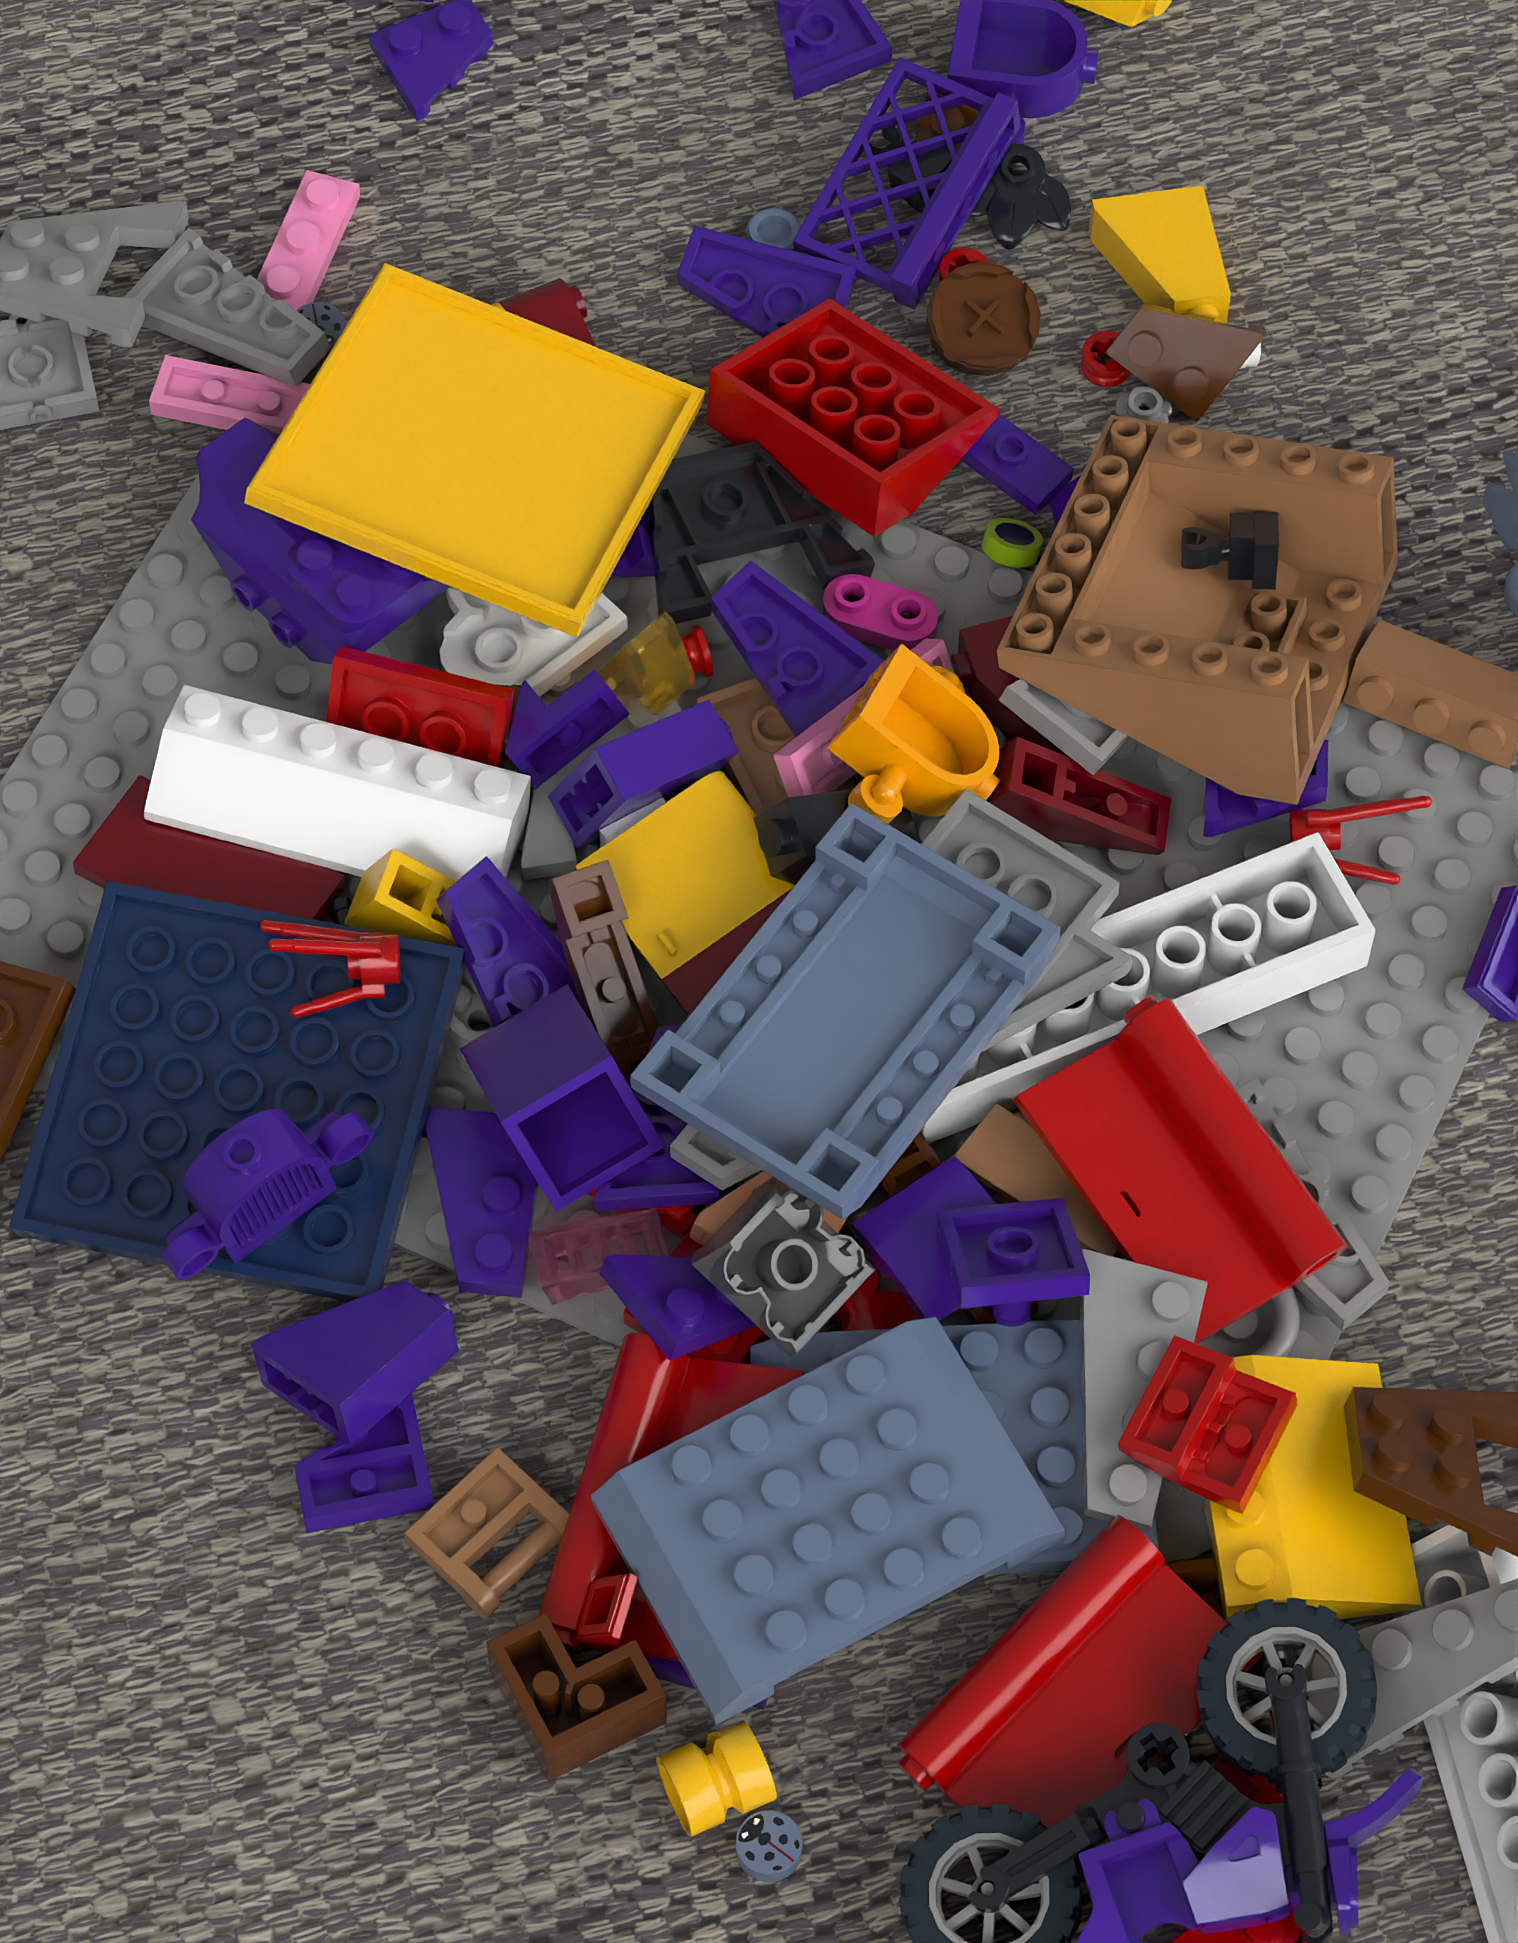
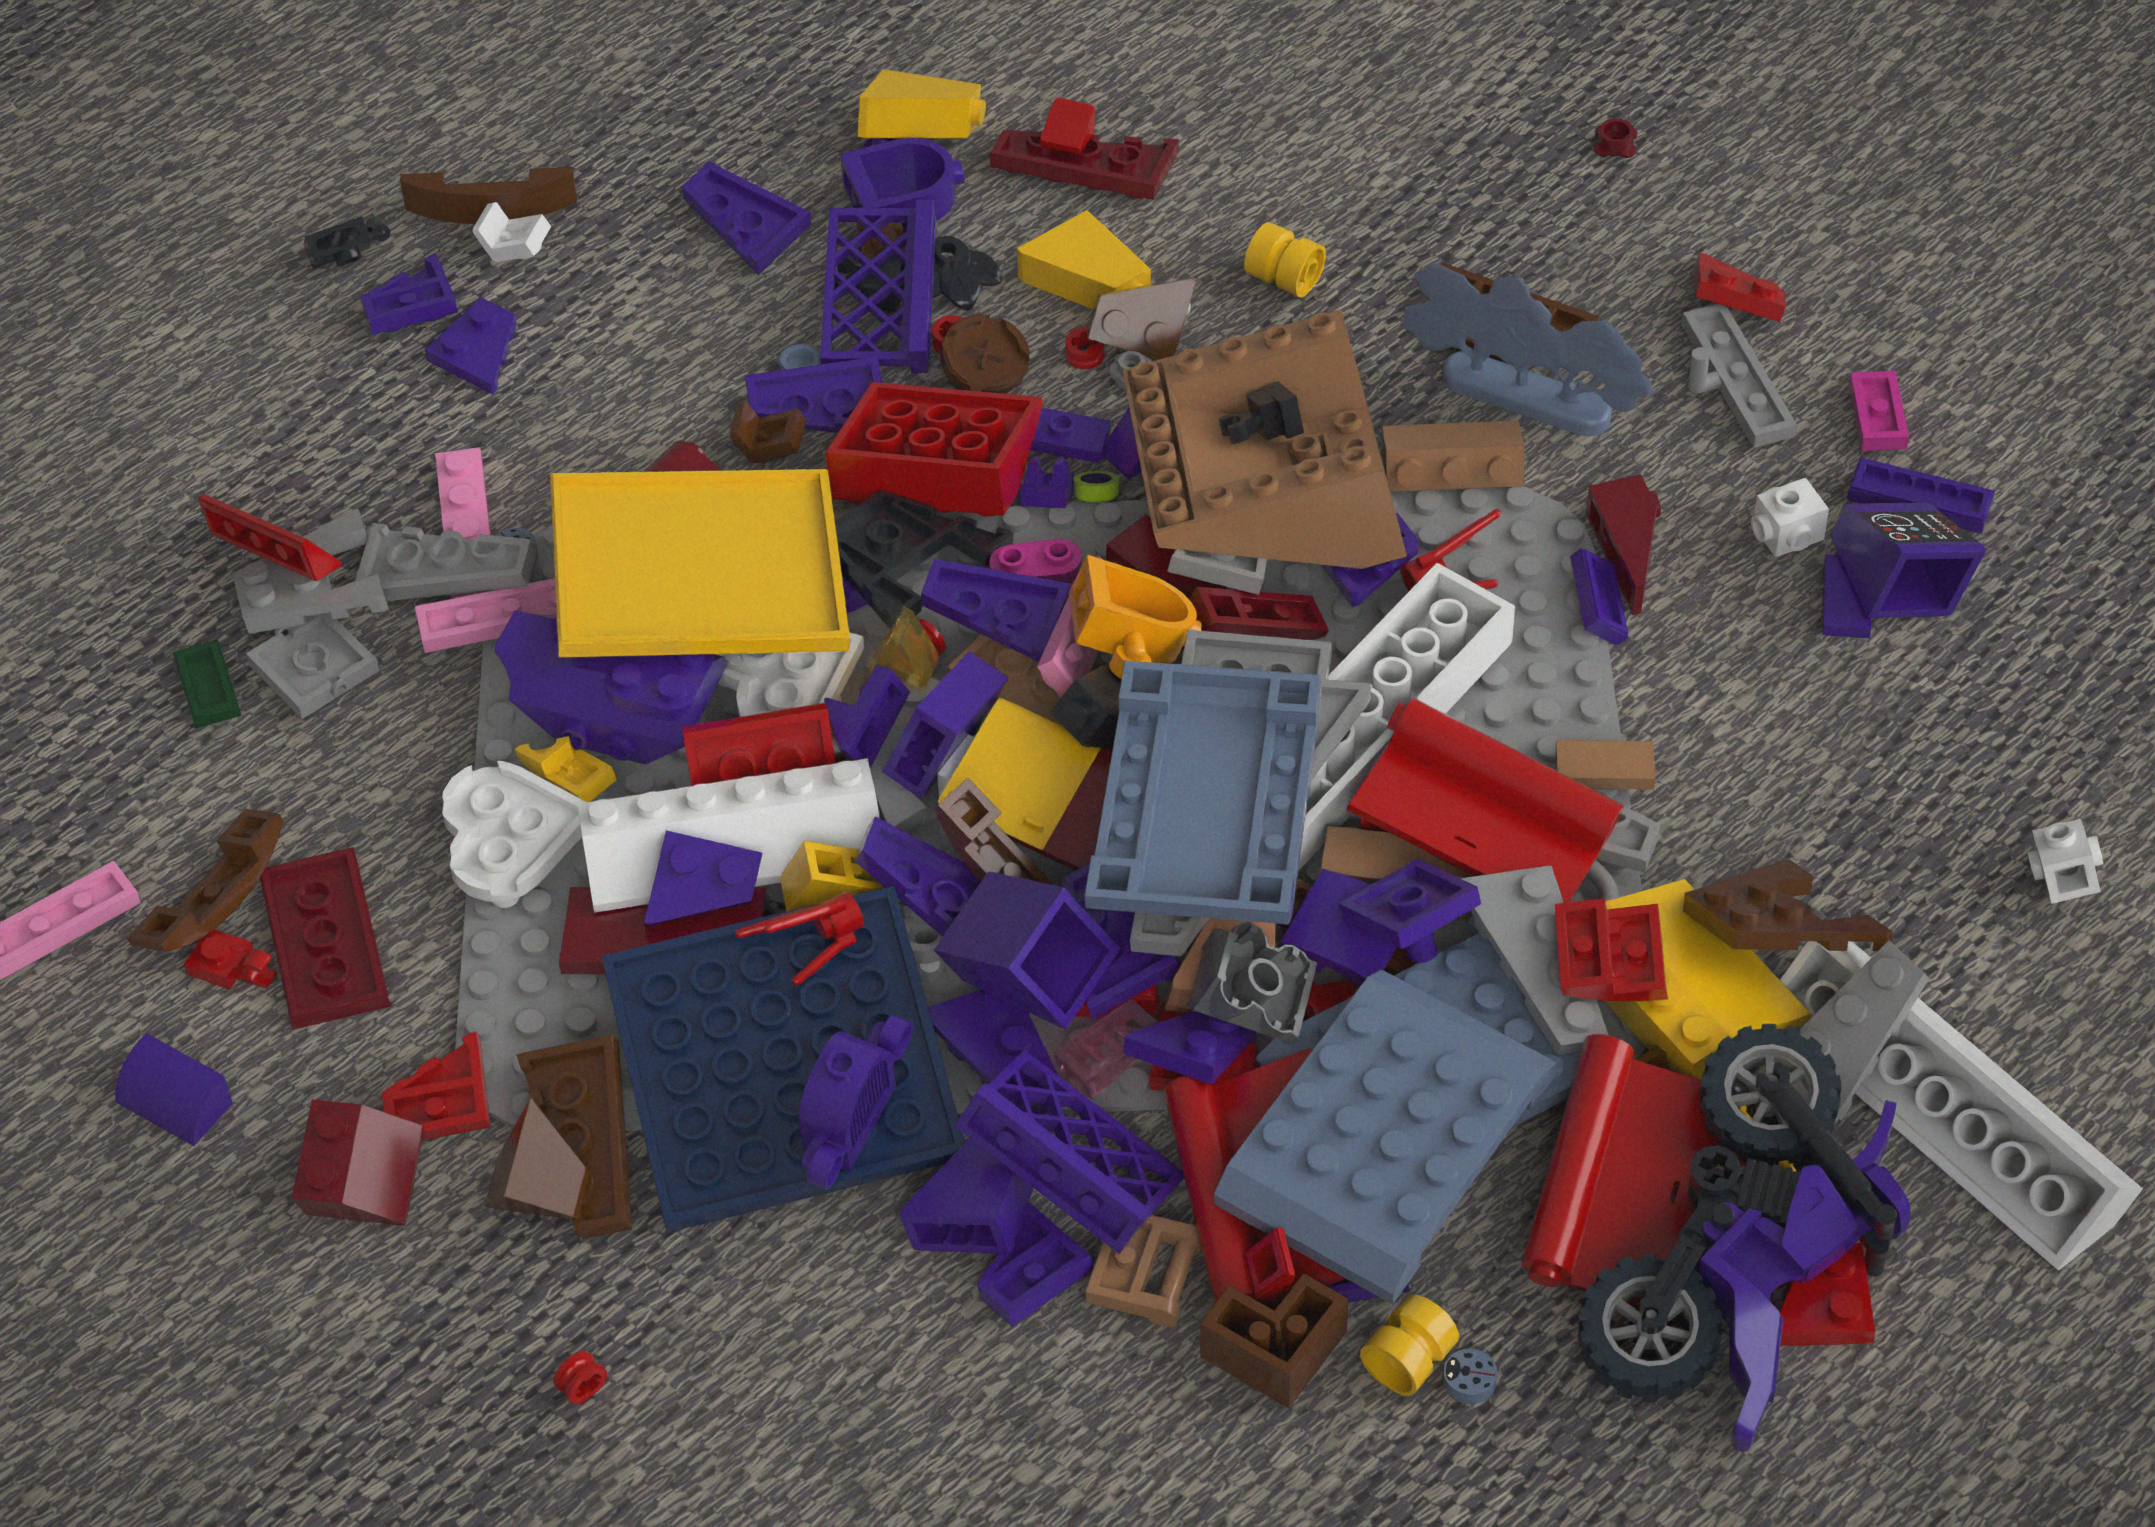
camera: 25 degrees left, 10 degrees down
(60, 202) = (267, 540): none -> red slope
(110, 674) = (506, 830): none -> white plate
(220, 631) = (568, 768): none -> yellow slope
(269, 835) = (700, 878): none -> dark purple wing
(440, 1374) = (1059, 1167): none -> dark purple fence
(677, 310) = (767, 436): none -> reddish brown bracket
(951, 520) = (1047, 489): none -> dark purple tile
(1249, 65) = (1068, 126): none -> red slope
(1276, 135) = (1113, 167): none -> dark red wing
(1380, 1172) = (1607, 763): none -> medium nougat tile
(1398, 345) = (1283, 259): none -> yellow wheel

